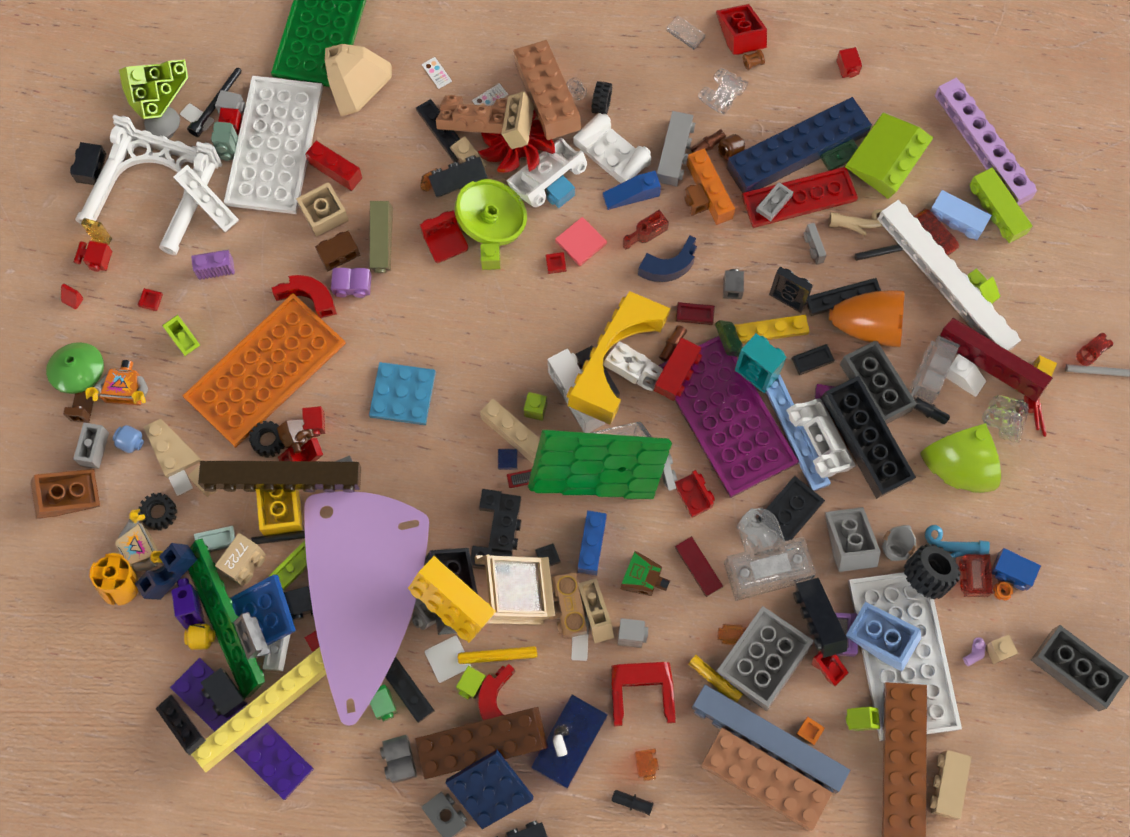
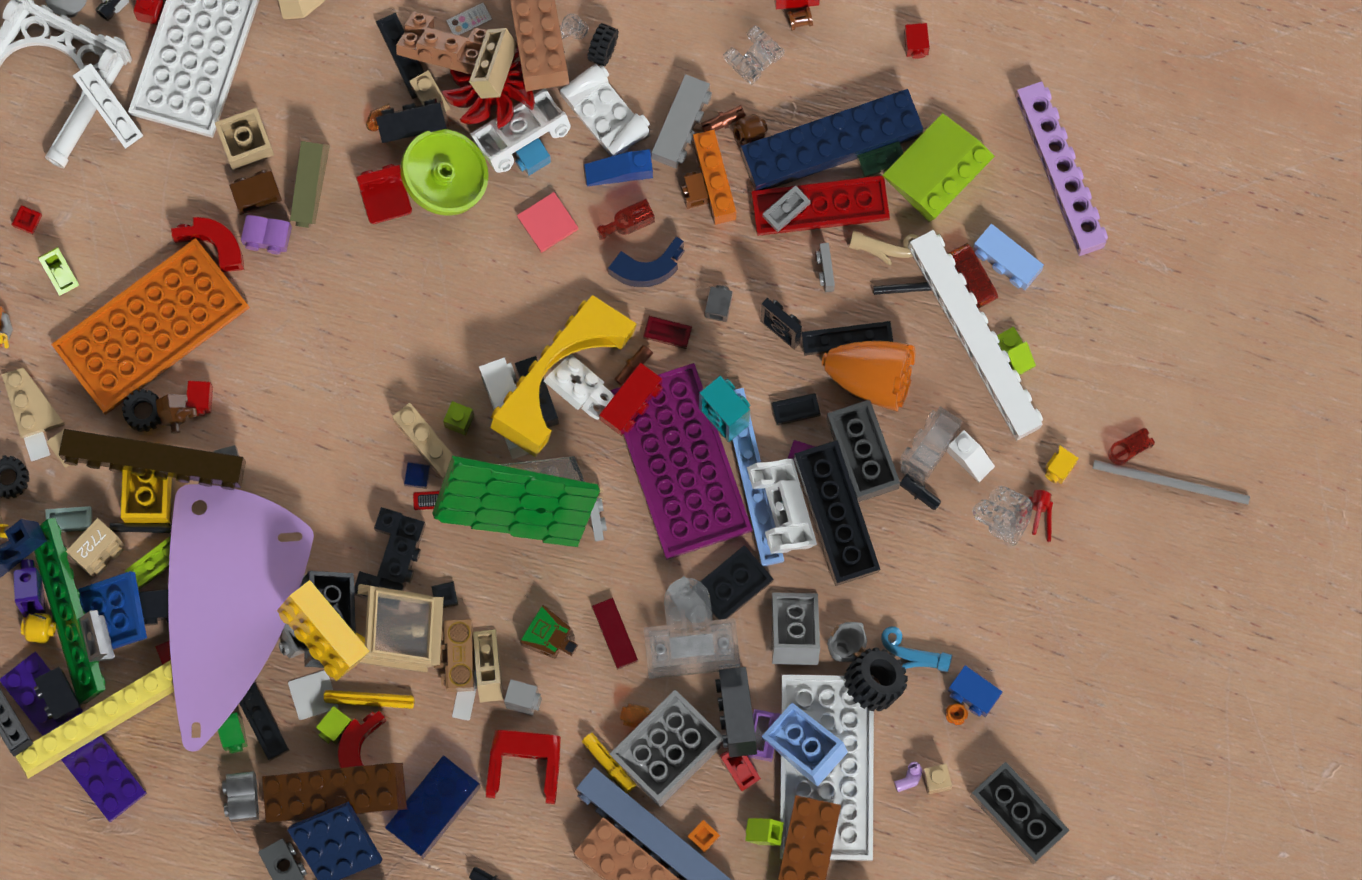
camera: 10 degrees right, 5 degrees up
(213, 264) = (106, 188): medium lavender brick -> none
(224, 140) = (139, 34): sand green brick -> none
(276, 658) = (121, 665): white plate -> none
(309, 452) = (190, 434): red slope -> none
(333, 165) = (265, 83): red brick -> none
(402, 393) = (307, 378): dark azure plate -> none
(490, 256) = (435, 226): lime brick -> none
(556, 263) = (513, 245): red tile -> none
(558, 740) = (418, 802): white arm -> none
(592, 543) = (496, 588): blue brick -> none
(646, 764) = (514, 844): clear orange brick -> none
(695, 494) = (624, 549): red bracket -> none
(729, 337) = (699, 368): clear green plate -> none
(773, 328) = (753, 364): yellow plate -> none
(966, 460) = (943, 557): lime brick -> none
(976, 575) = (929, 691): clear red window -> none
(997, 360) = (1005, 443): dark red brick -> none
(1001, 205) = (1059, 252): lime brick -> none

